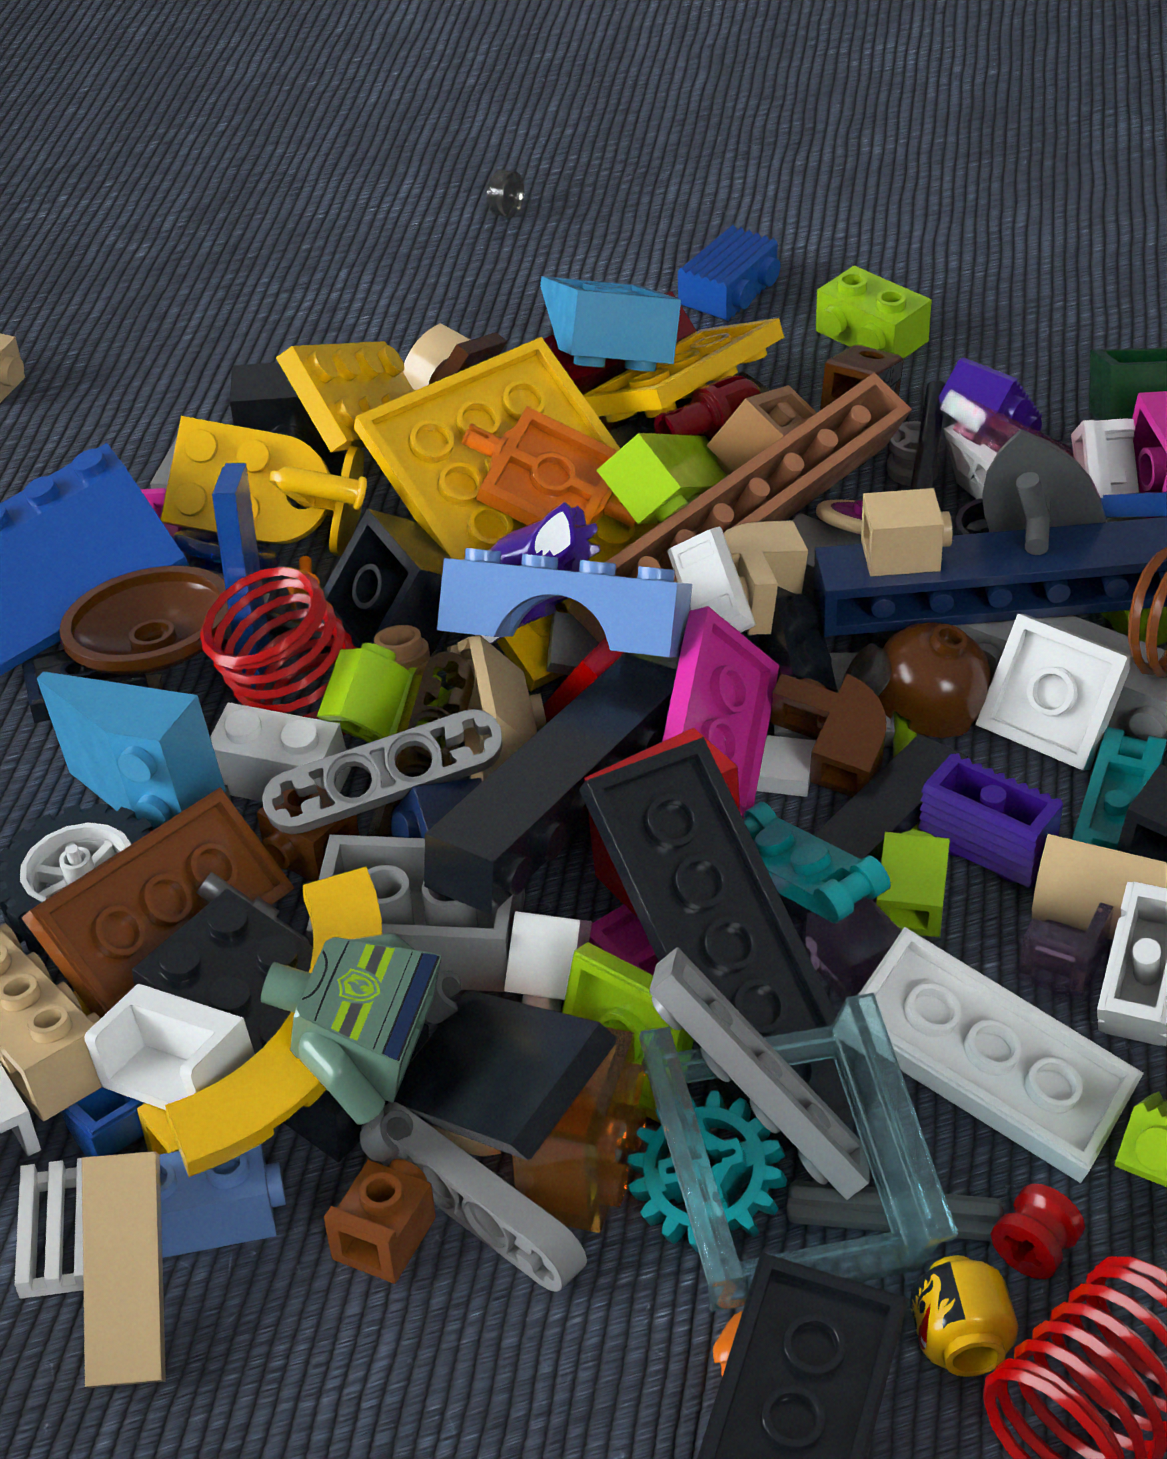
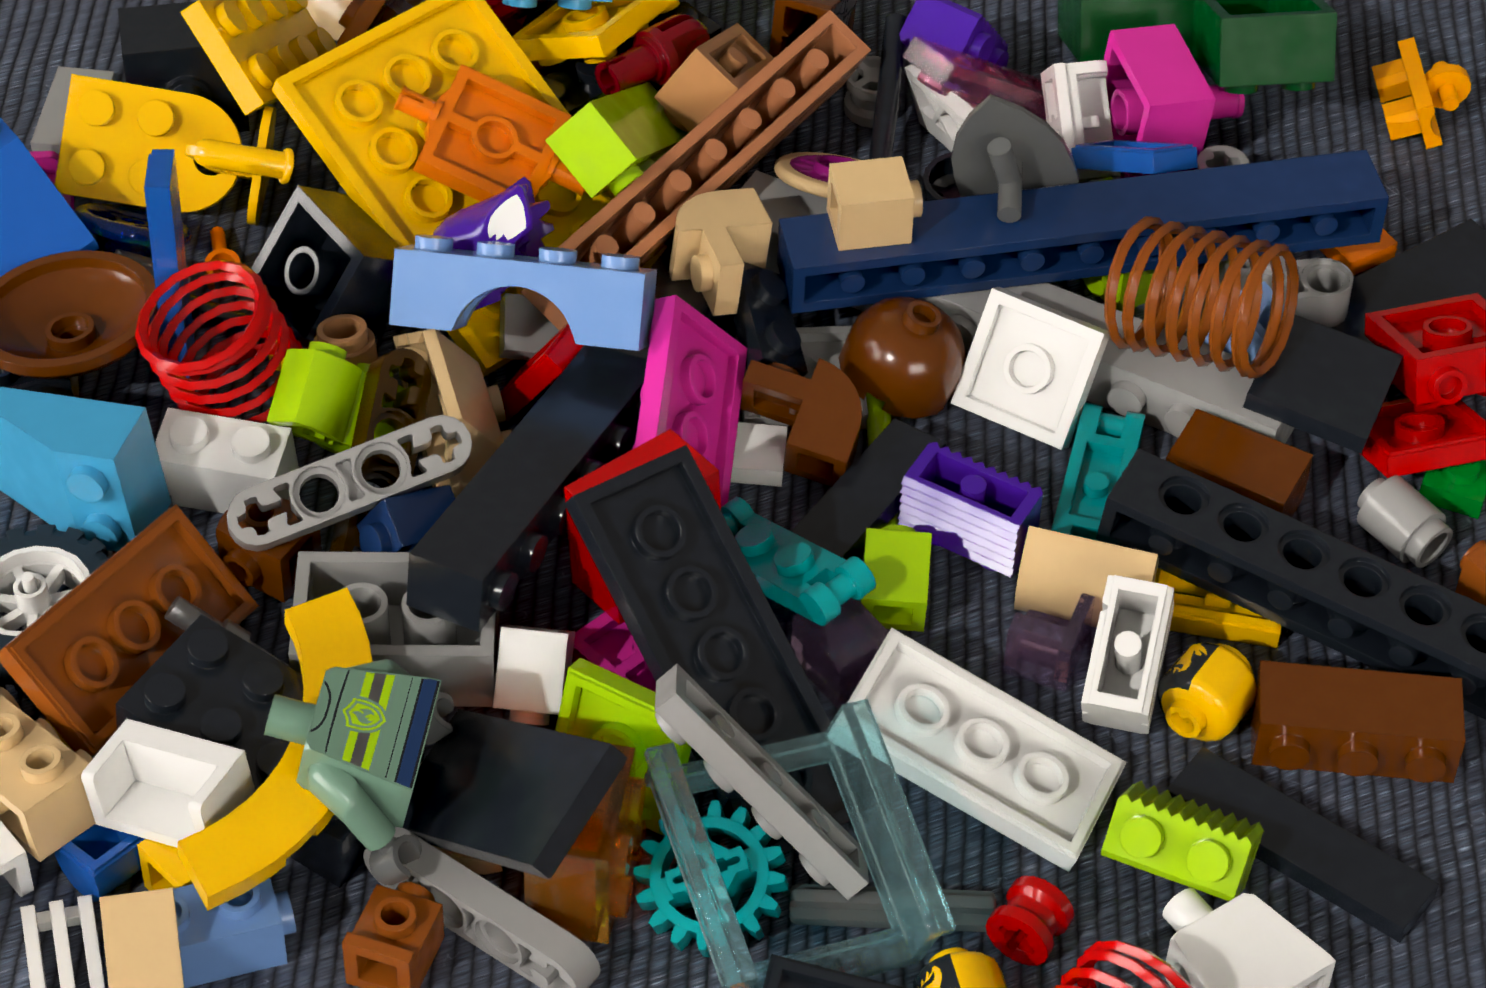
camera: 10 degrees left, 5 degrees up
(713, 575) = (669, 245): white tile -> none
(871, 667) = (840, 347): clear smoke tile -> none

